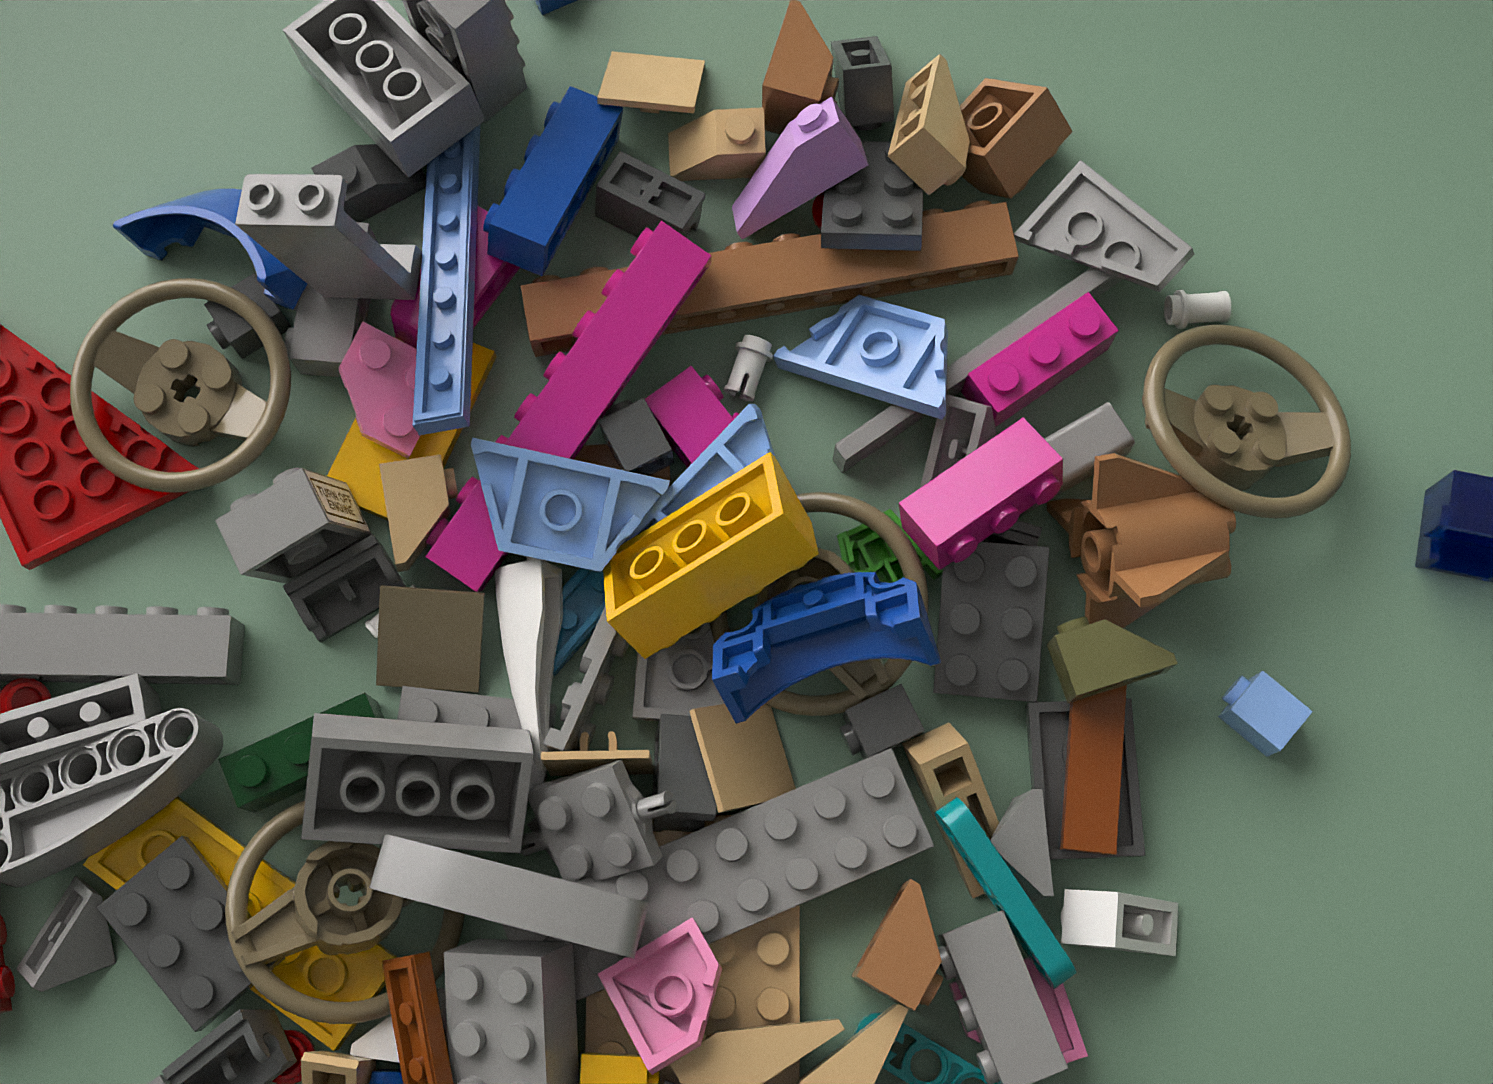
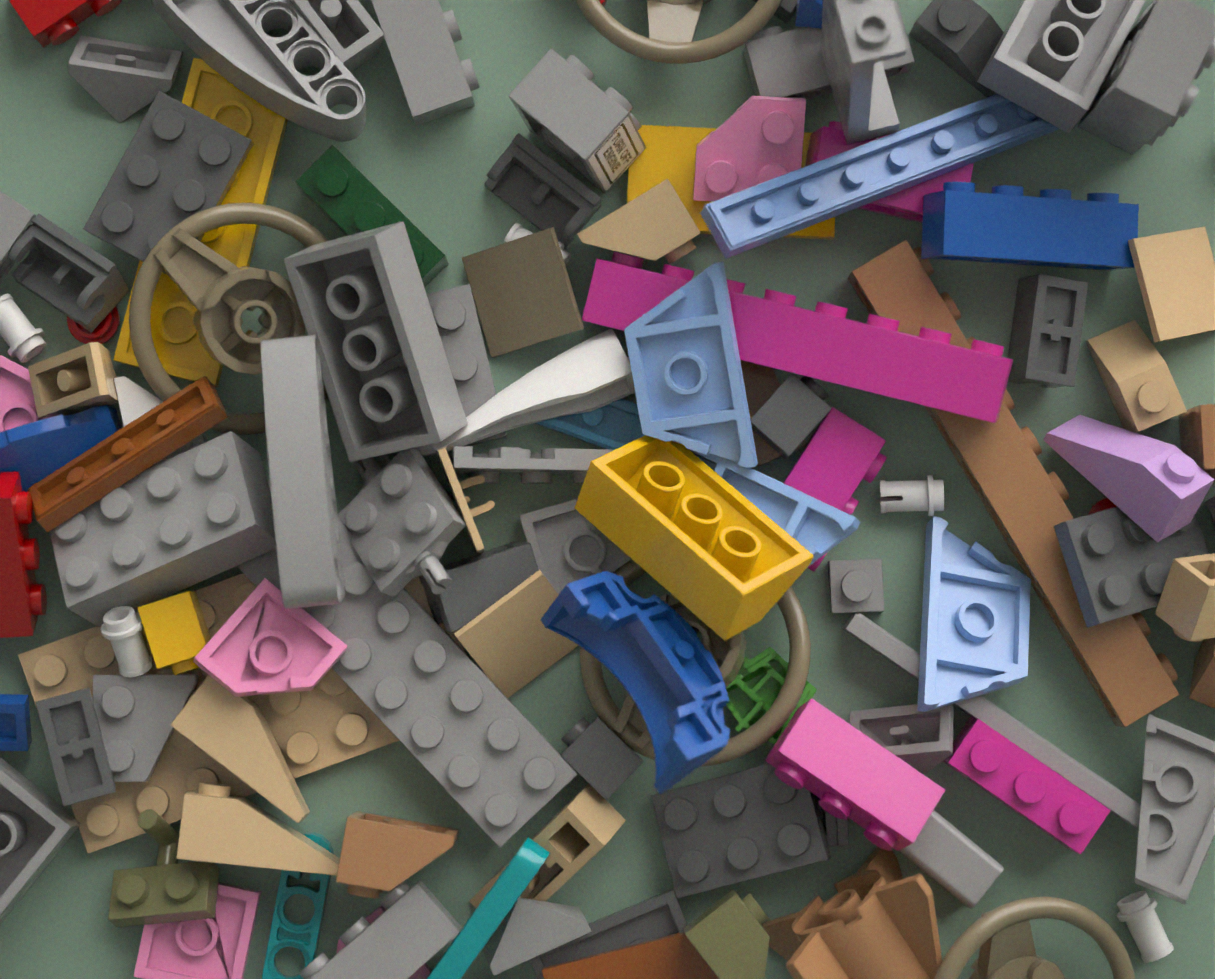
camera: 65 degrees right, 10 degrees up
(809, 445) = (856, 586): none -> light grey plate

